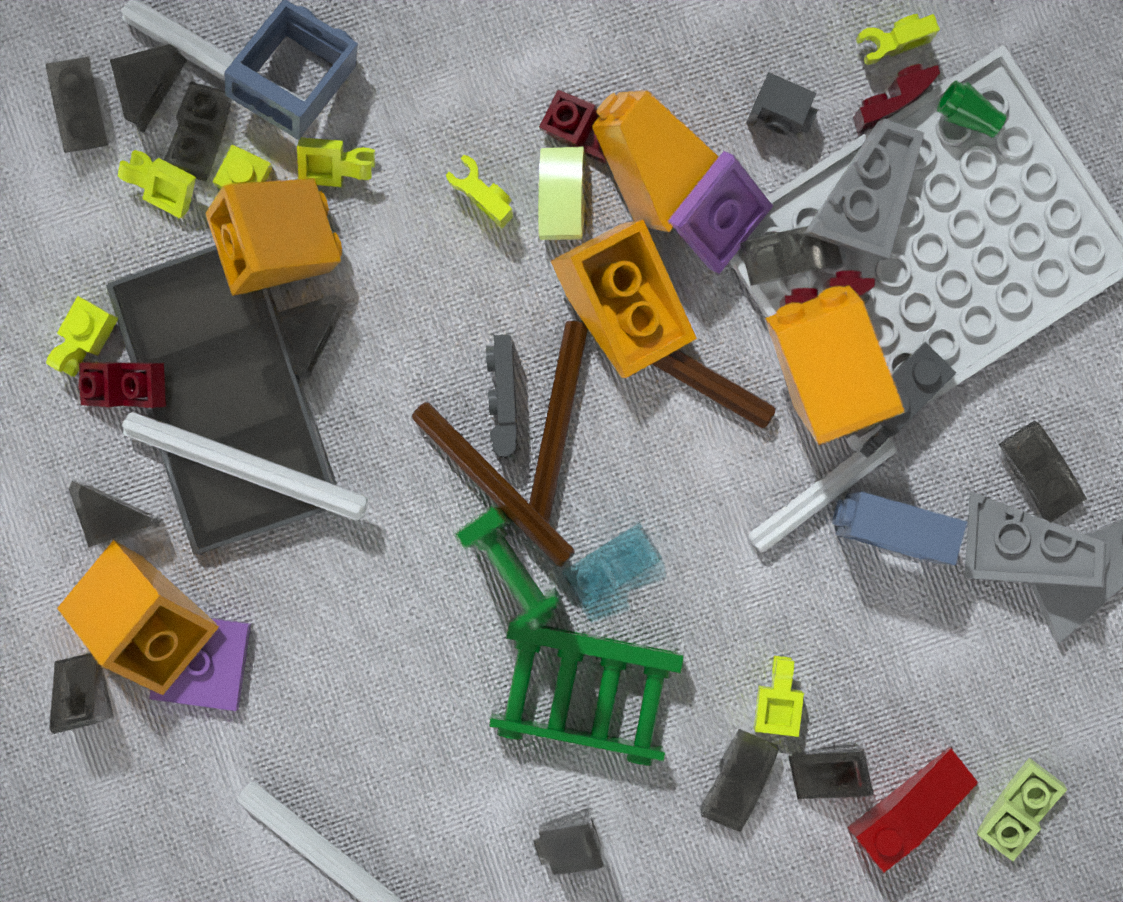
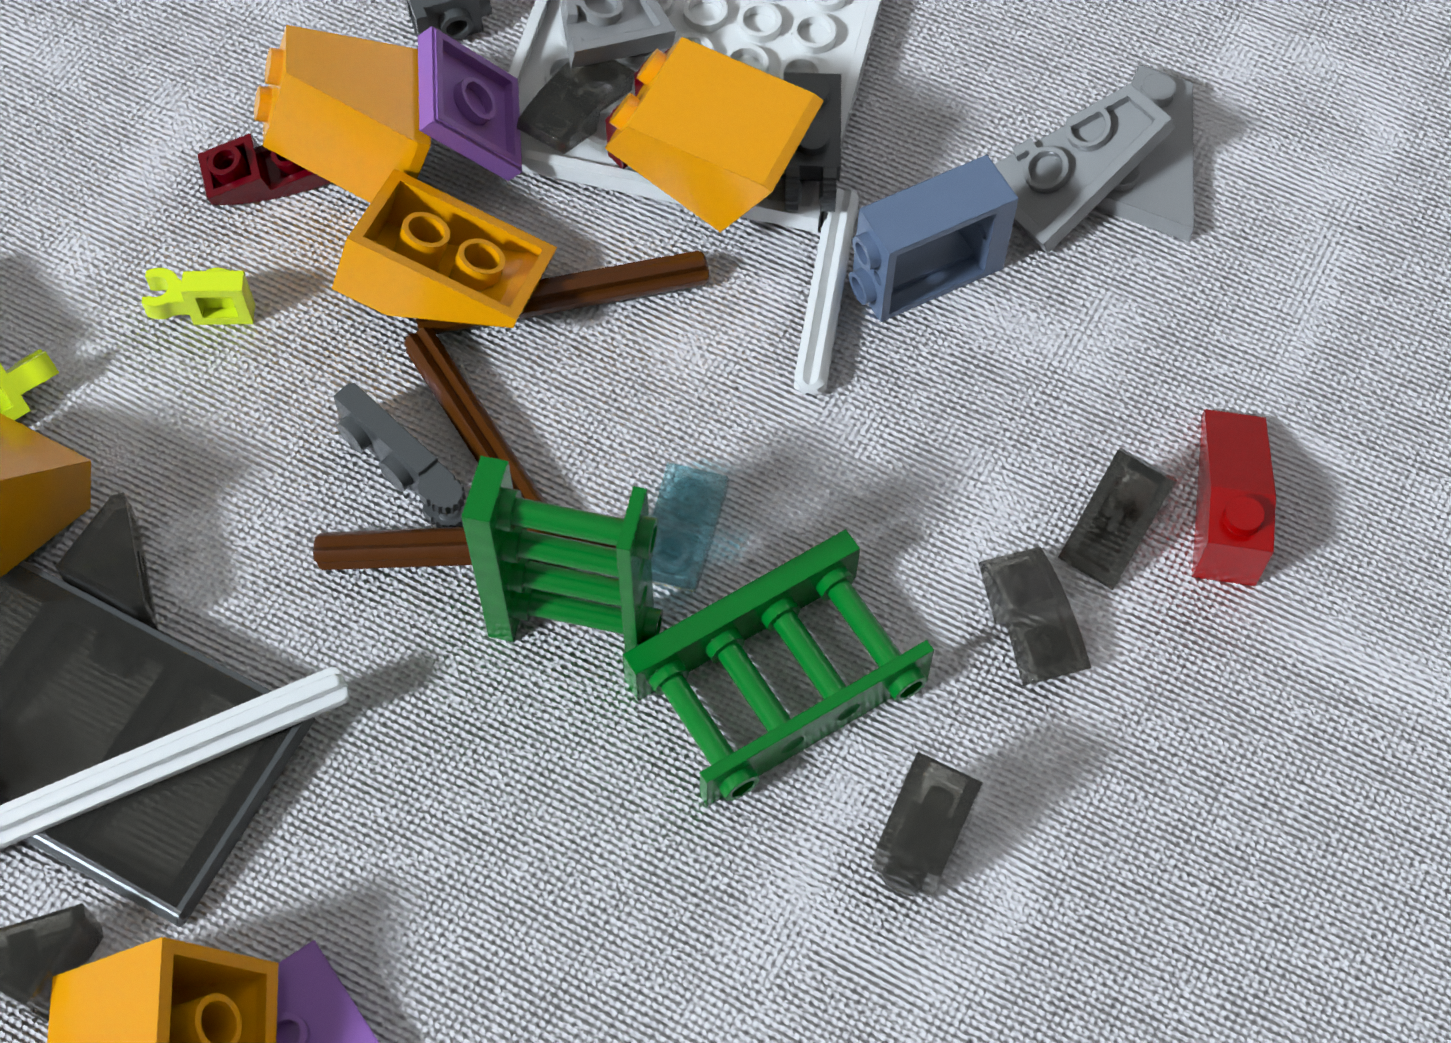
camera: 50 degrees left, 25 degrees down
(561, 193) = (288, 234): yellowish green slope -> none
(779, 706) = (992, 510): neon yellow plate -> none
(1020, 808) = (1329, 403): yellowish green slope -> none
(1043, 471) = (1002, 101): clear smoke slope -> none

